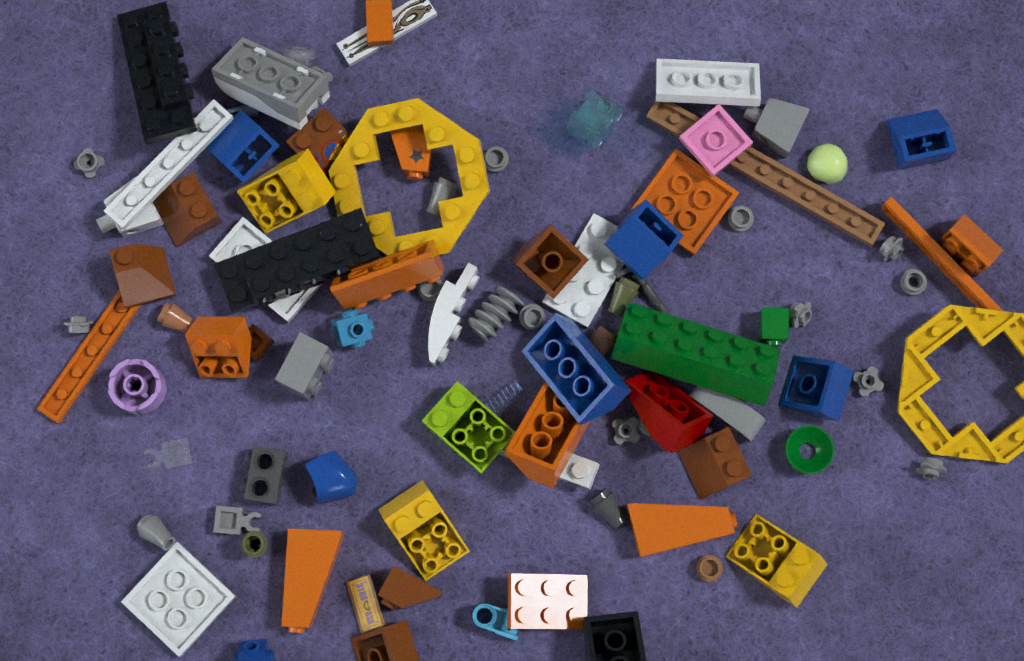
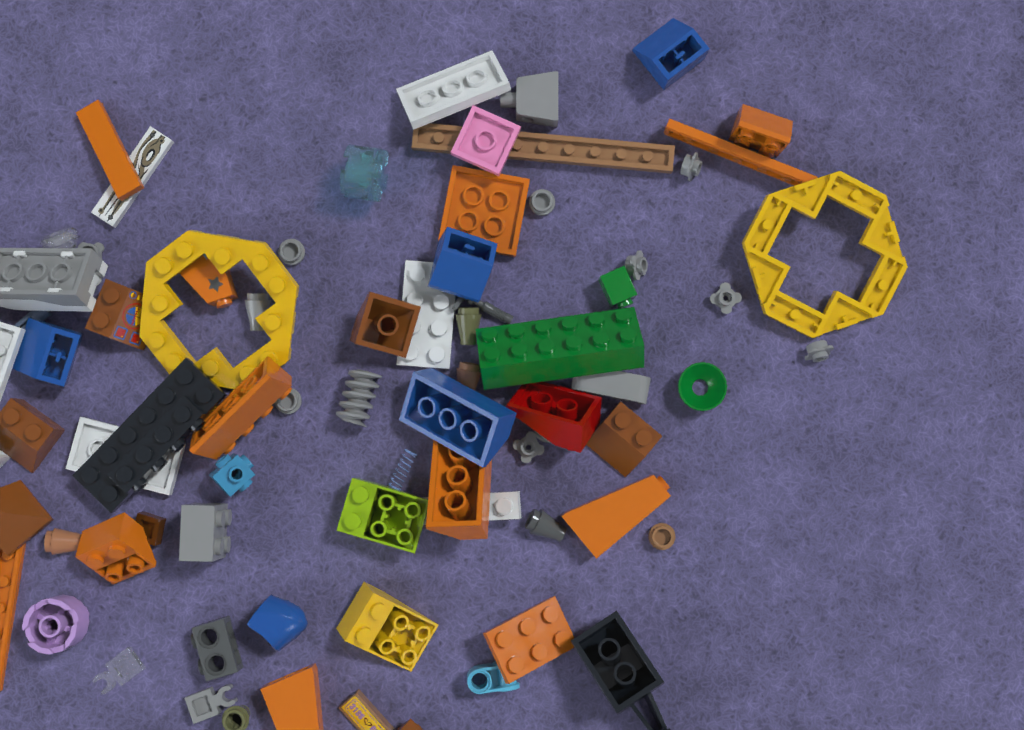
camera: 30 degrees left, 5 degrees up
(287, 191) = (109, 374): yellow slope -> none
(406, 590) = (397, 692): dark orange slope -> none
(443, 322) = (314, 428): white slope -> none
(531, 316) = (393, 383): light grey plate -> none
(777, 560) = (718, 500): yellow slope -> none
(816, 387) = (682, 326): blue slope -> none
(827, 163) = (597, 114): yellowish green hair -> none
(919, 276) = (727, 180): light grey plate -> none

